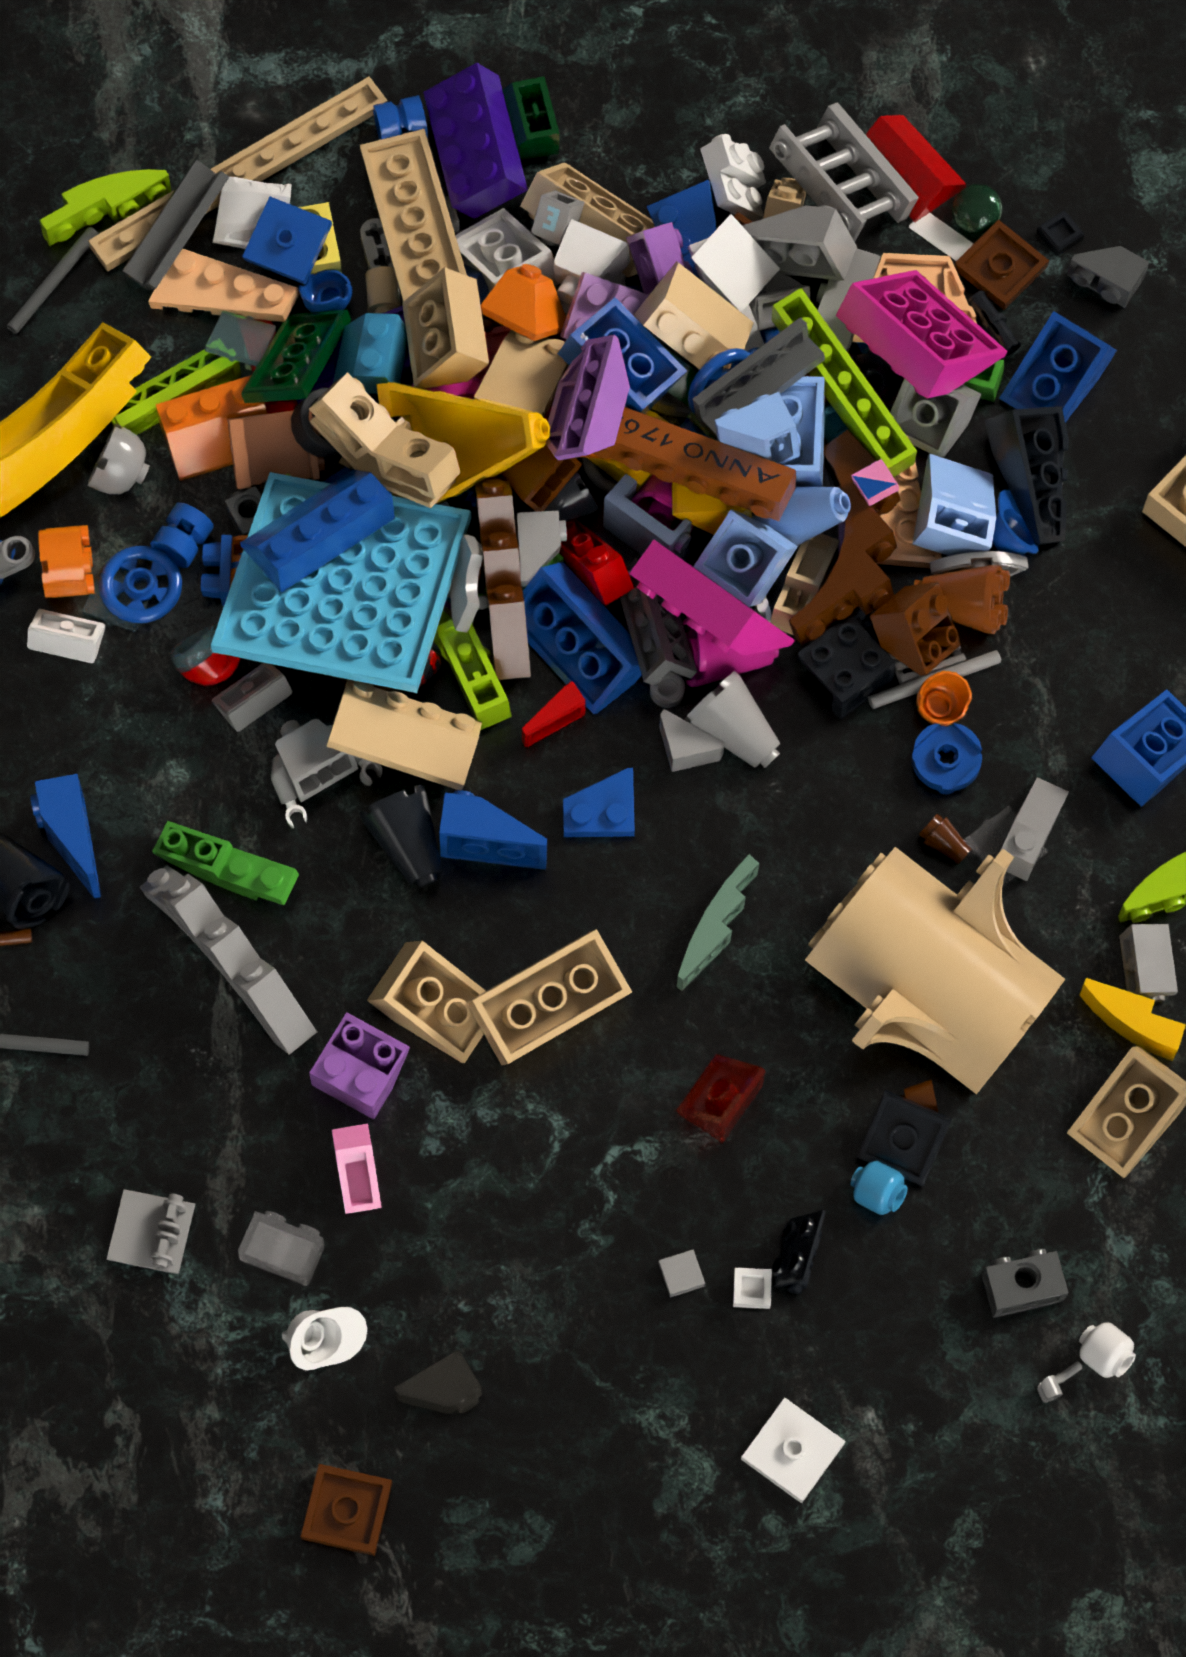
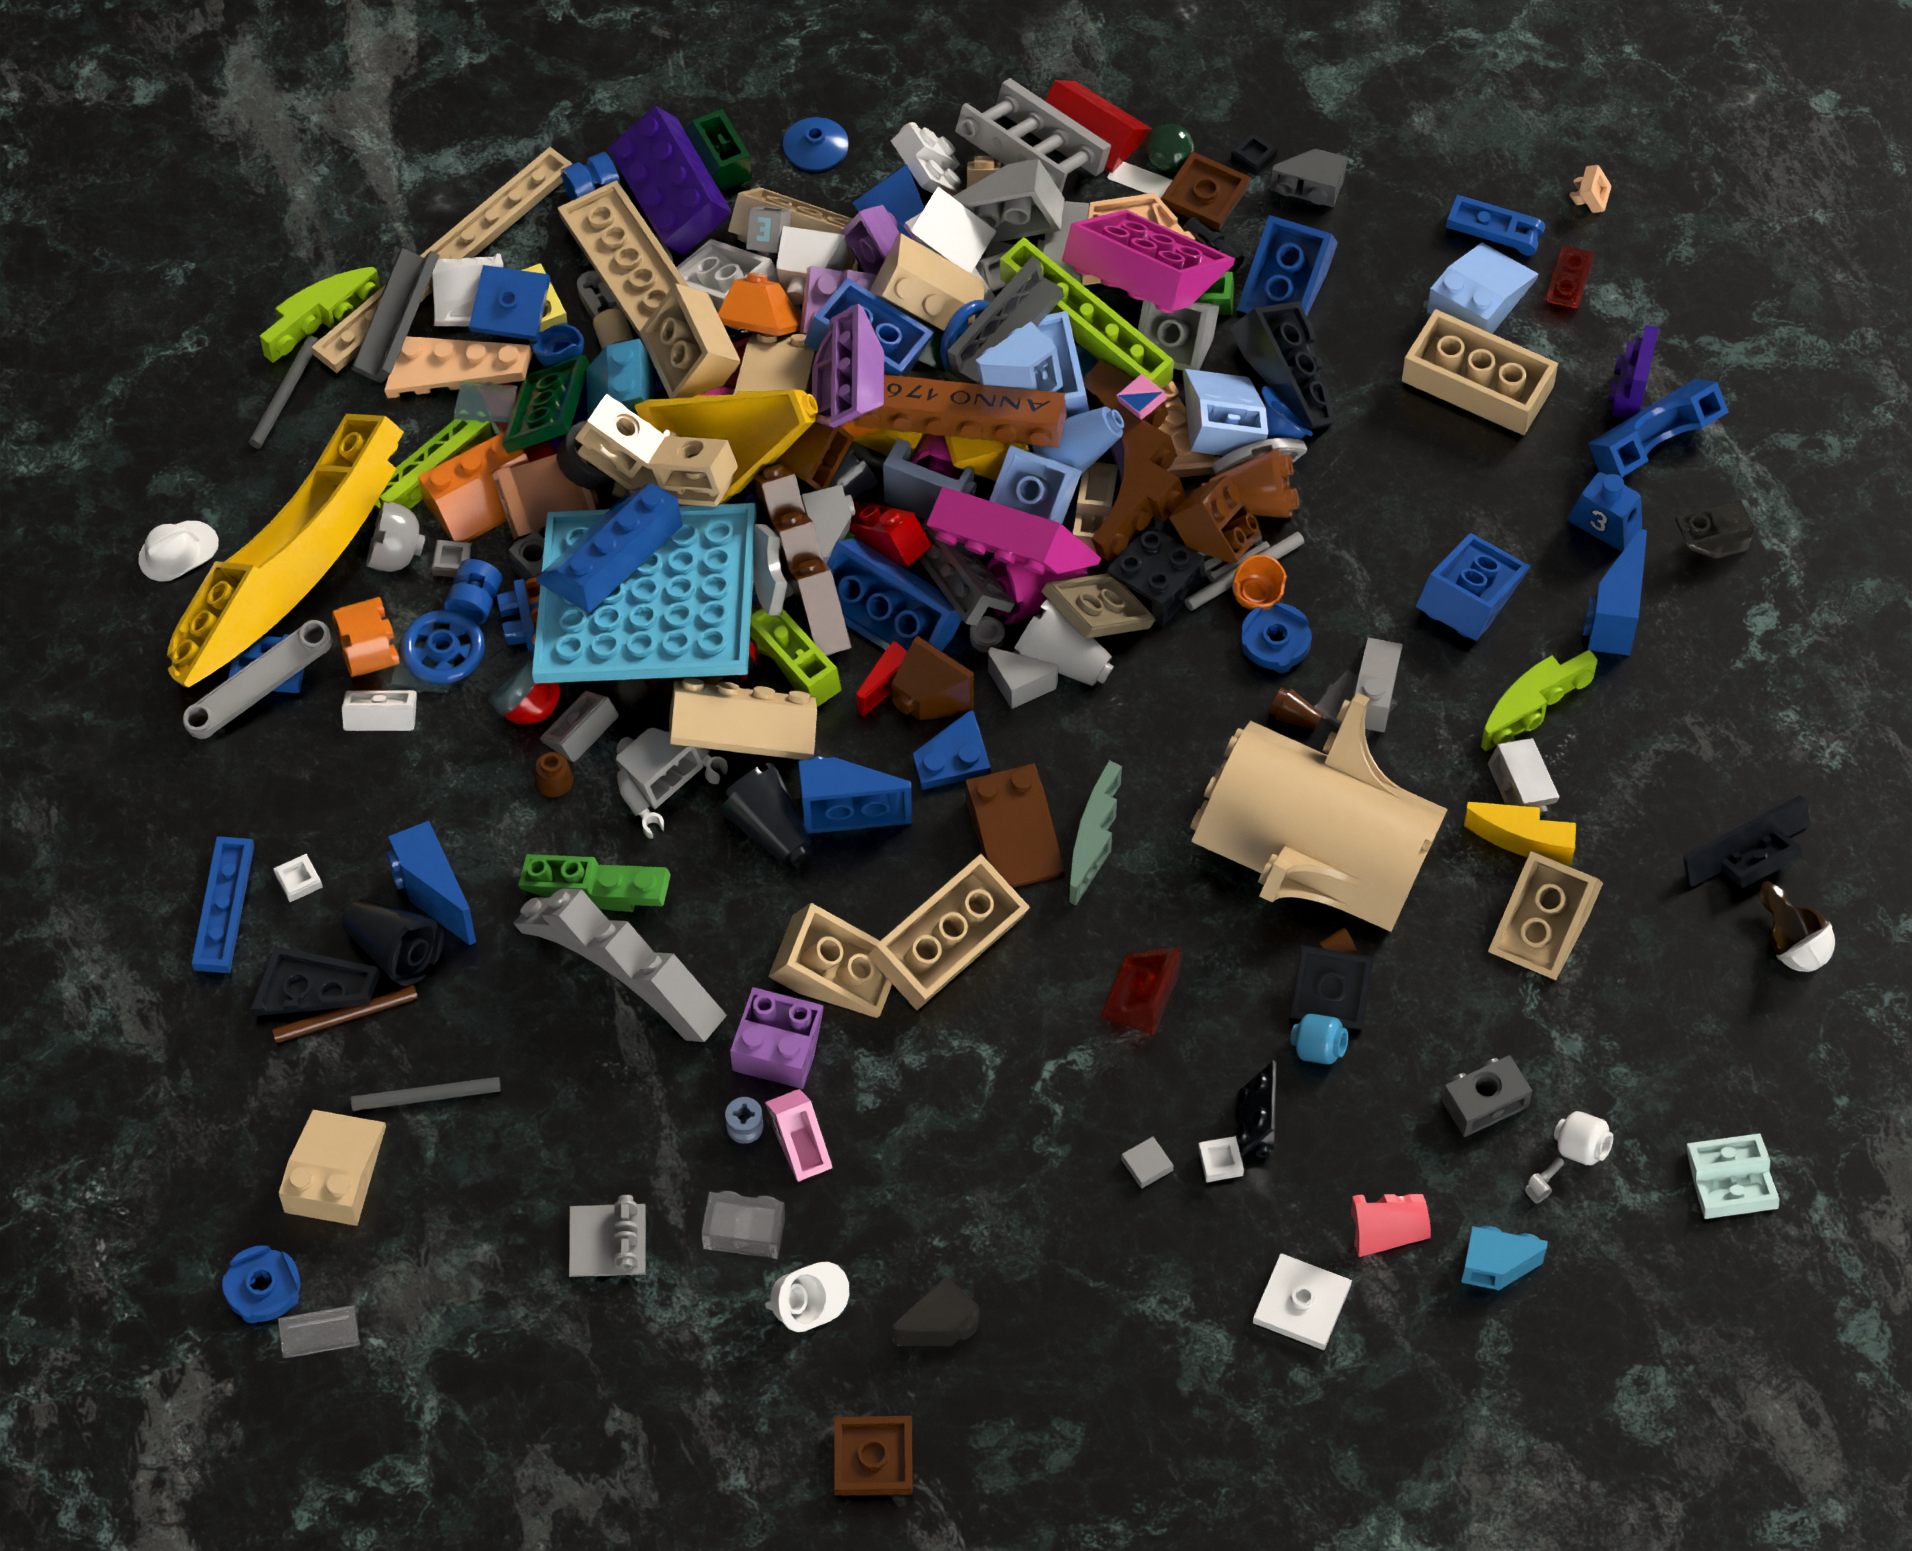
camera: 10 degrees left, 10 degrees down
(171, 490) = (449, 556): none -> light grey tile
(214, 742) = (553, 775): none -> reddish brown hat
(307, 1149) = (745, 1129): none -> sand blue wheel
(596, 734) = (932, 684): none -> reddish brown slope
(631, 139) = (819, 153): none -> blue dish
(641, 900) = (1014, 825): none -> reddish brown slope
(779, 689) = (1098, 605): none -> dark tan tile
(896, 1393) = (1389, 1222): none -> coral slope
(992, 1453) = (1500, 1257): none -> dark azure slope

